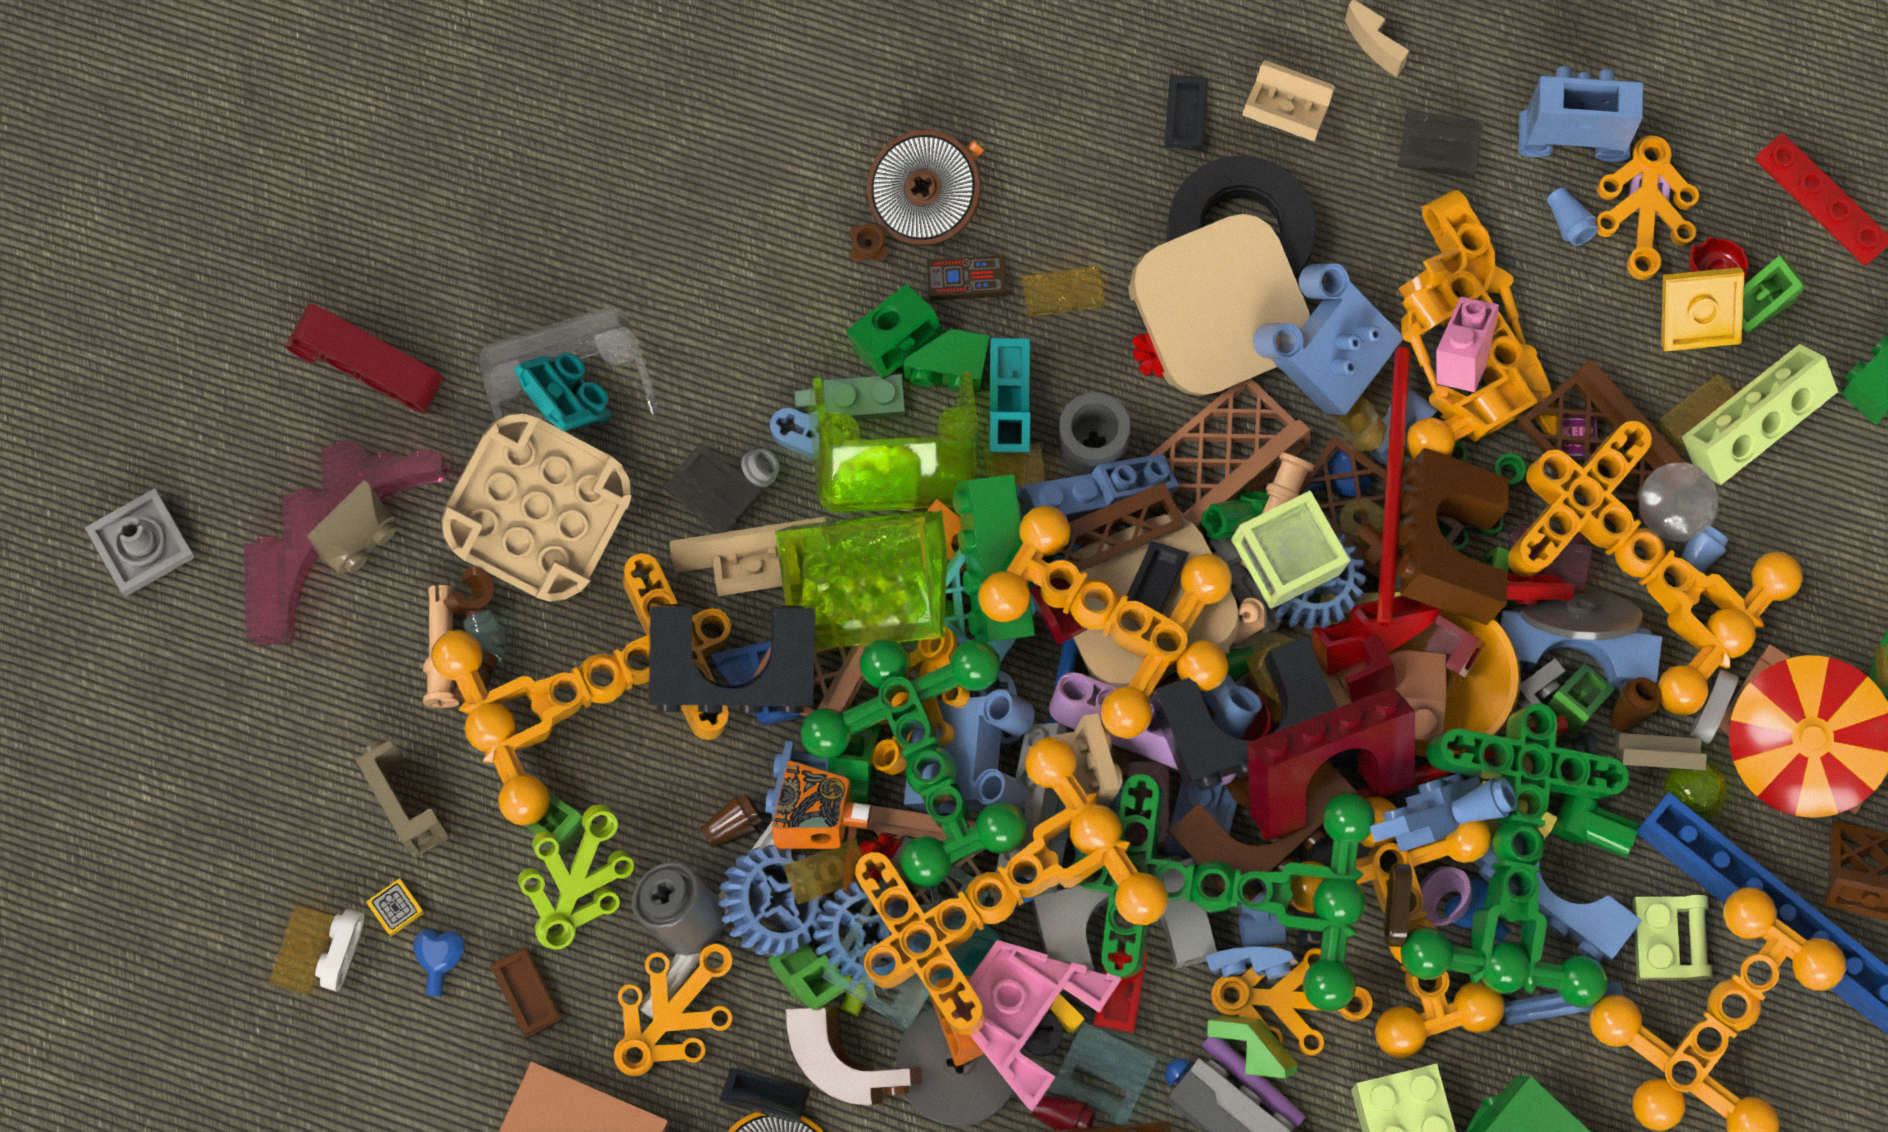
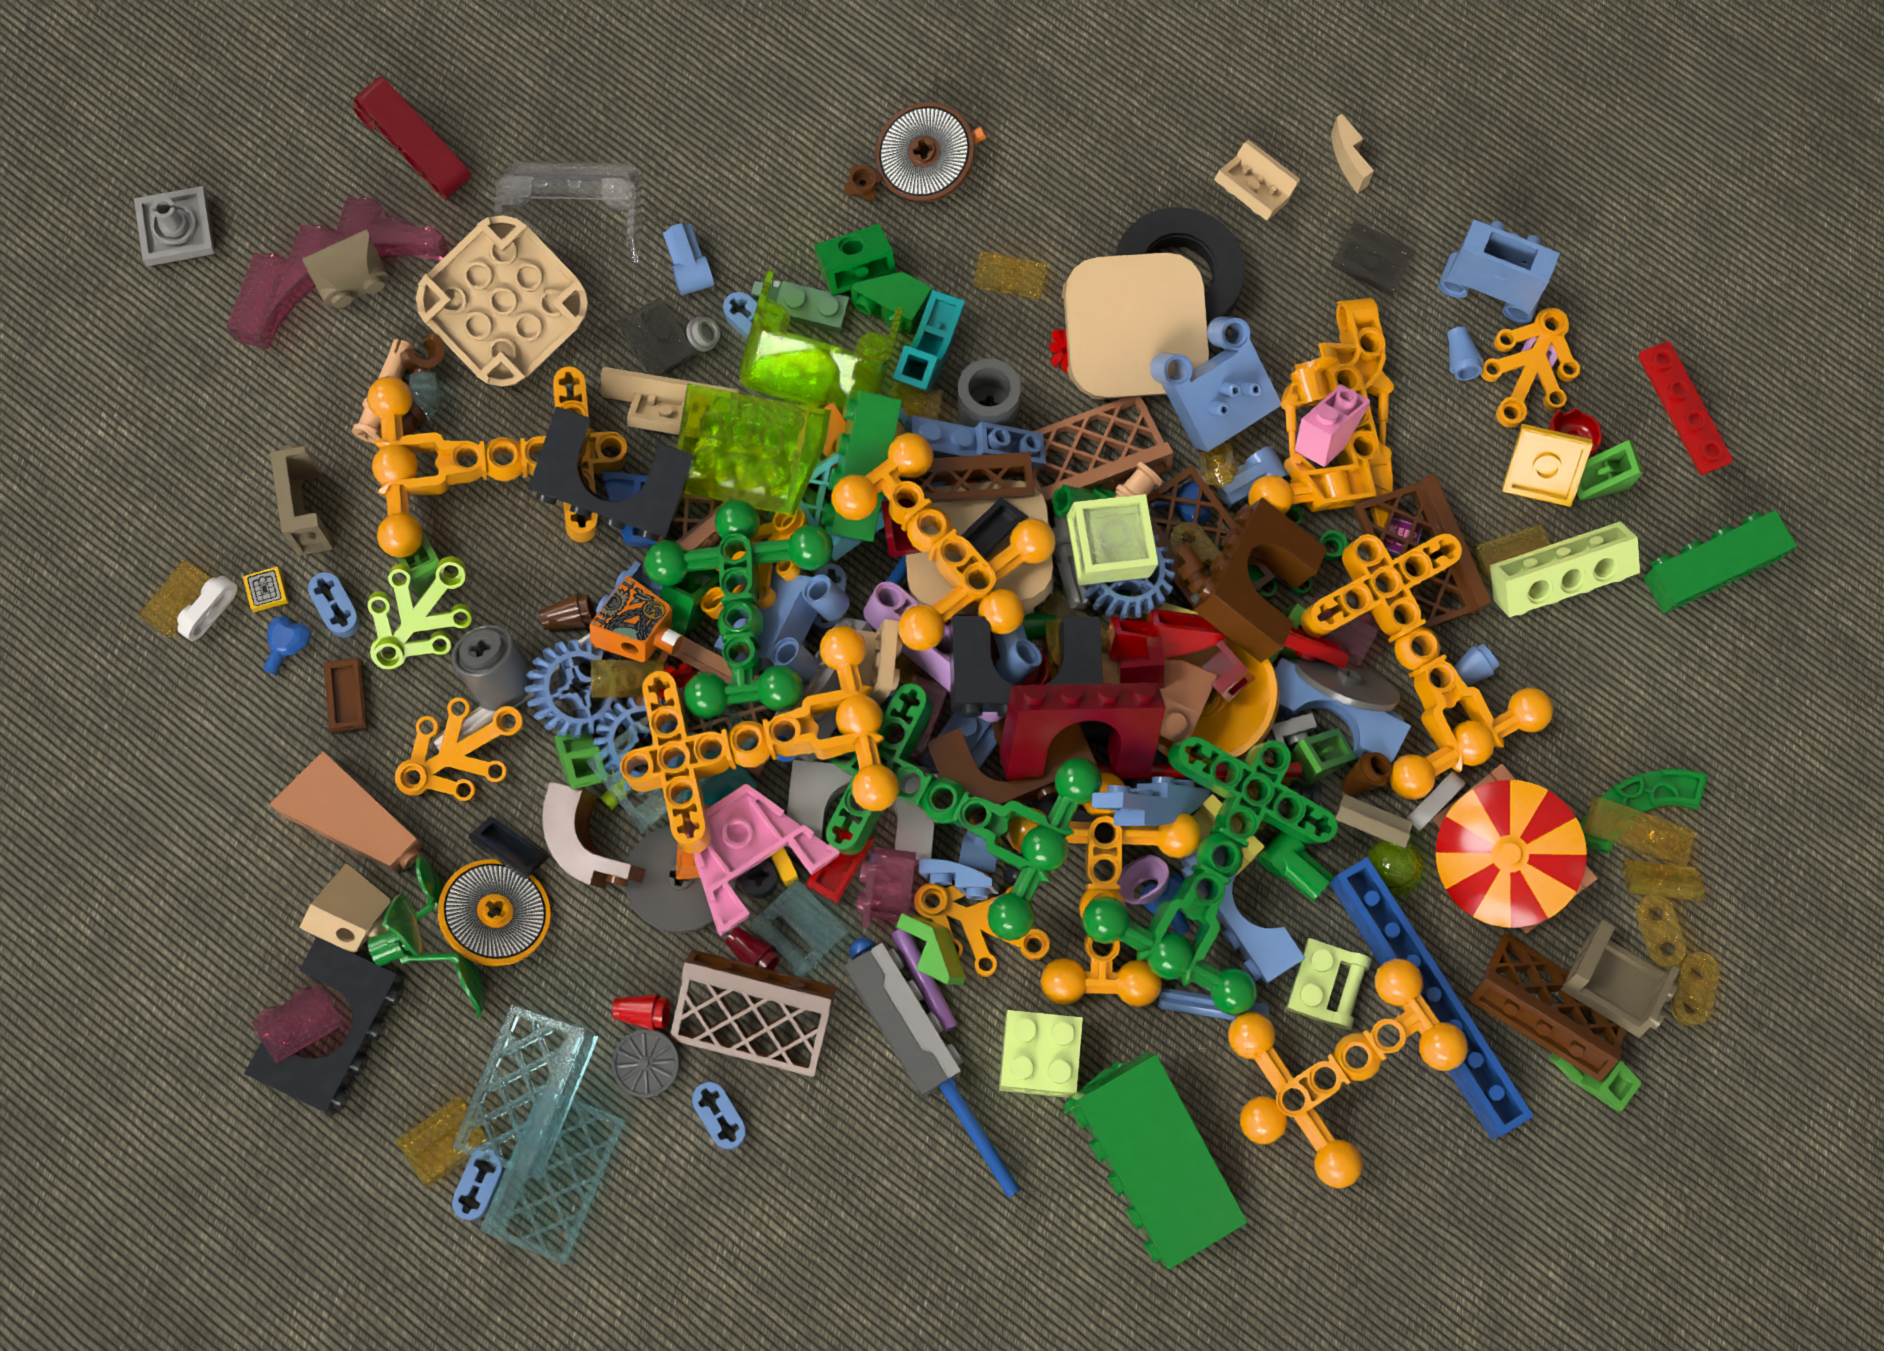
camera: 15 degrees right, 0 degrees up
(469, 905) = (341, 601): none -> medium blue beam
(561, 393) = (559, 215): teal slope -> none
(719, 400) = (689, 267): none -> medium blue piece
(966, 277) = (933, 237): dark brown tile -> none
(1183, 995) = (888, 885): none -> clear pink bracket
(1186, 112) = (1168, 163): black tile -> none
(1253, 618) = (1064, 591): light nougat arm -> none
(1393, 489) = (1223, 523): red piece -> none
(1397, 905) = (1095, 870): dark brown tile -> none
(1488, 801) = (1205, 809): medium blue cone -> none
(1678, 501) = (1466, 617): clear dish -> none

